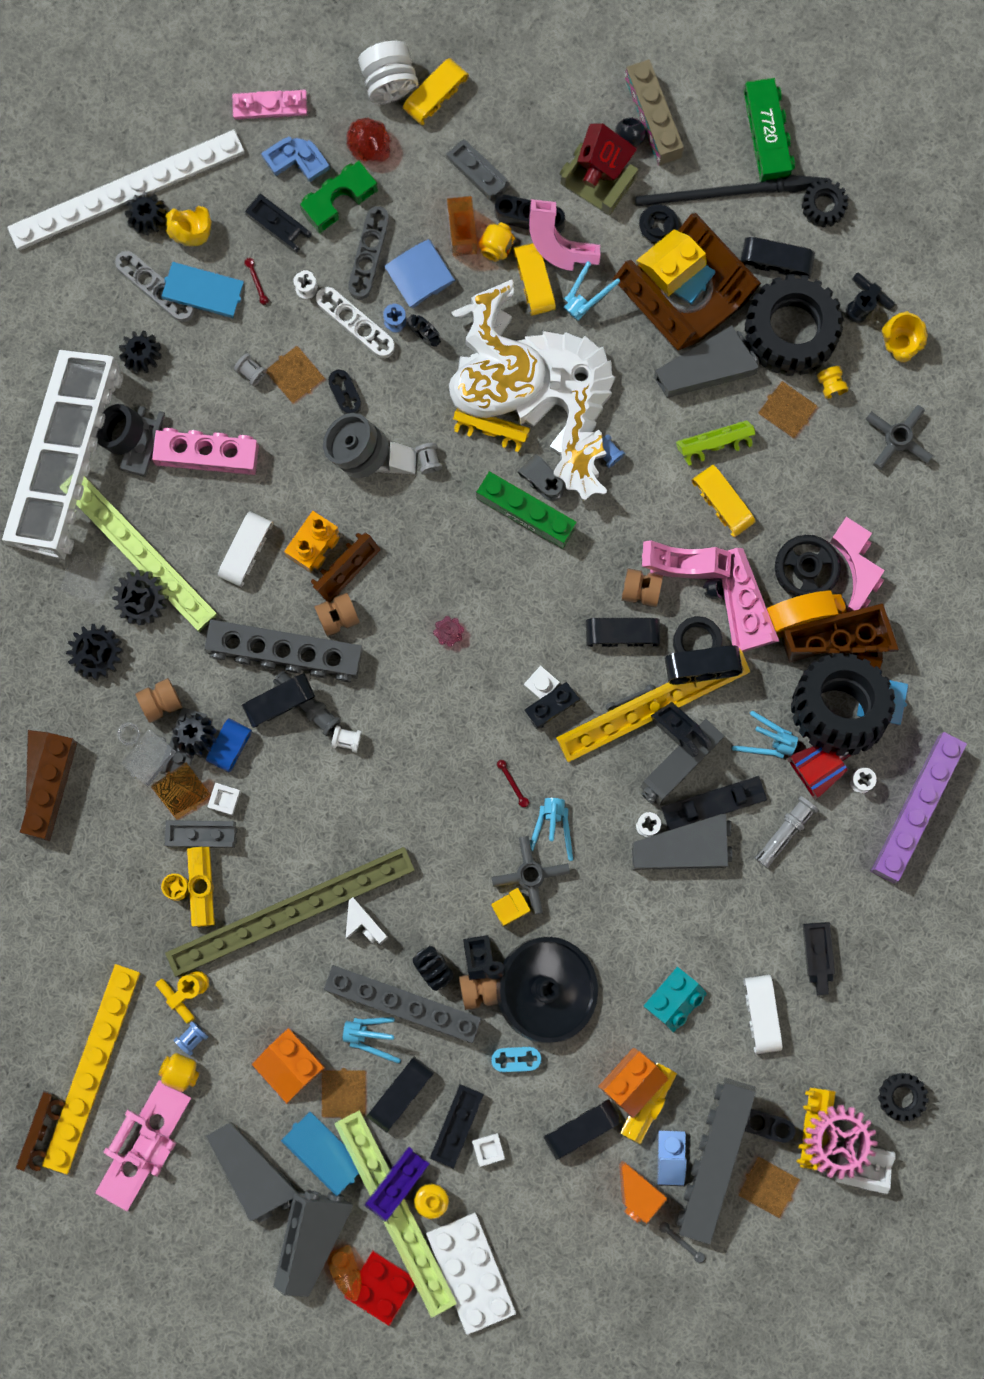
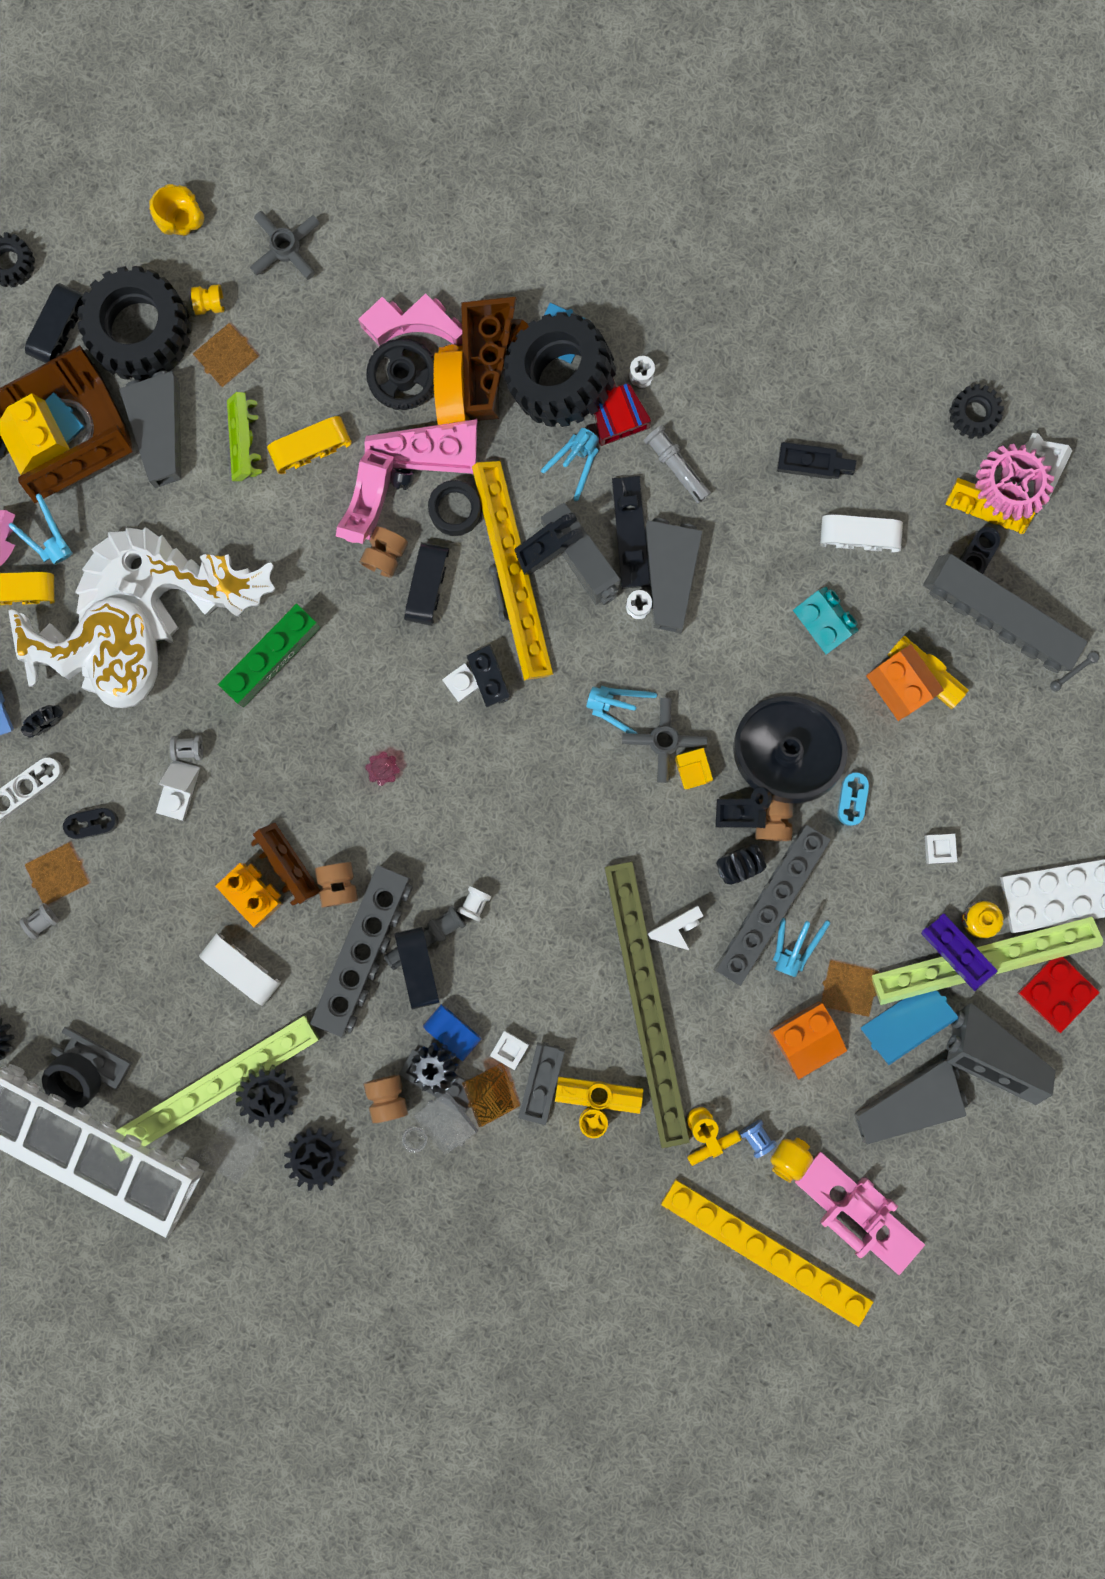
camera: 70 degrees left, 5 degrees up
(37, 1132) = (823, 1325): reddish brown plate -> none
(47, 774) = (441, 1239): reddish brown wedge -> none
(170, 438) = (95, 1027): bright pink brick -> none
(345, 1271) = (1036, 1025): clear orange plate -> none
(355, 445) = (153, 823): dark grey wheel -> none
(388, 321) = (18, 742): medium blue bush -> none
(400, 1094) = (866, 928): black beam -> none
(456, 1126) = (909, 876): black plate -> none
(493, 426) = (169, 672): yellow plate -> none
(523, 801) = (583, 731): dark red hinge -> none
(539, 476) = (235, 631): dark grey piece -> none
(582, 1129) = (942, 746): black beam -> none
(613, 453) = (227, 548): medium blue bush -> none
(638, 1195) = (1026, 701): orange slope -> none
(671, 1158) = (987, 662): light blue slope -> none
(703, 665) = (484, 504): black beam -> none
(768, 1187) = (1037, 570): clear orange piece -> none
(865, 300) = (126, 242): black piece -> none
(918, 807) = (683, 321): medium lavender brick -> none

